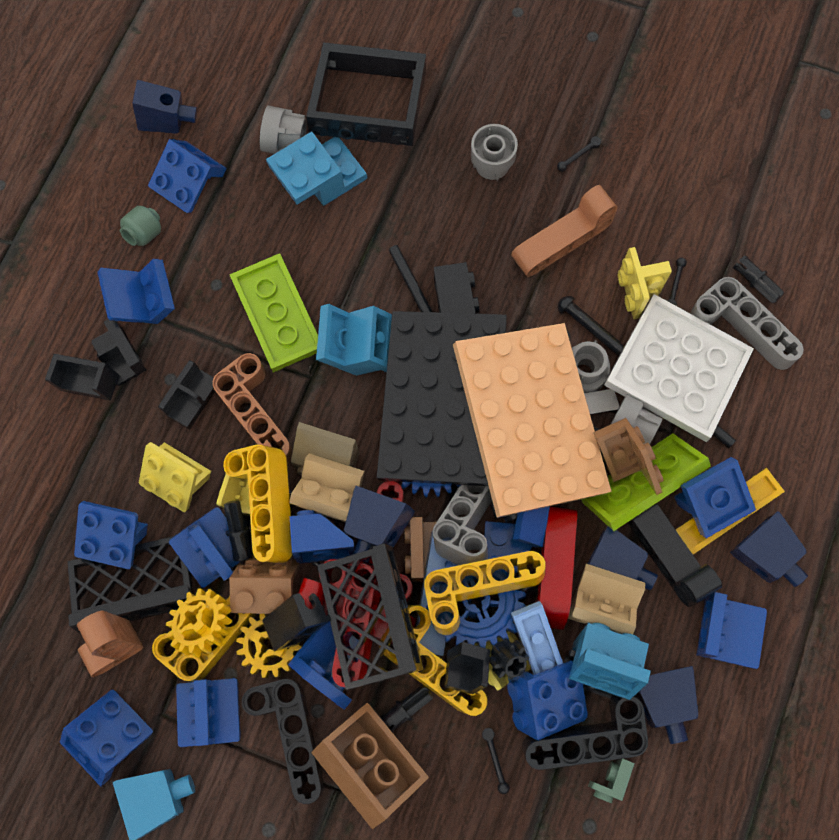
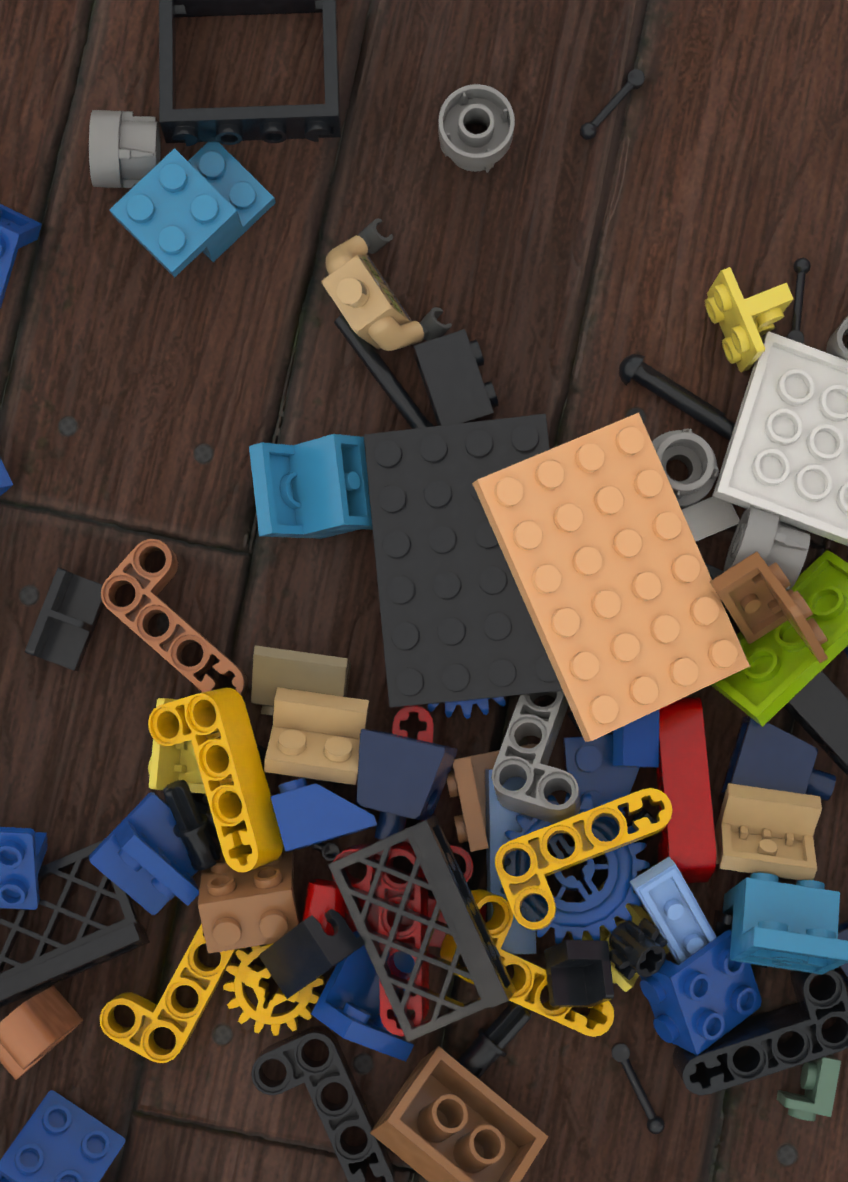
camera: 15 degrees left, 10 degrees up
(171, 475) = (69, 751): light yellow bracket -> none
(199, 623) = (168, 976): yellow gear -> none
(208, 712) = (202, 1099): blue bracket -> none
(276, 312) = (175, 458): lime plate -> none
(411, 238) = (367, 298): none -> tan torso
(568, 233) = (649, 216): nougat beam -> none

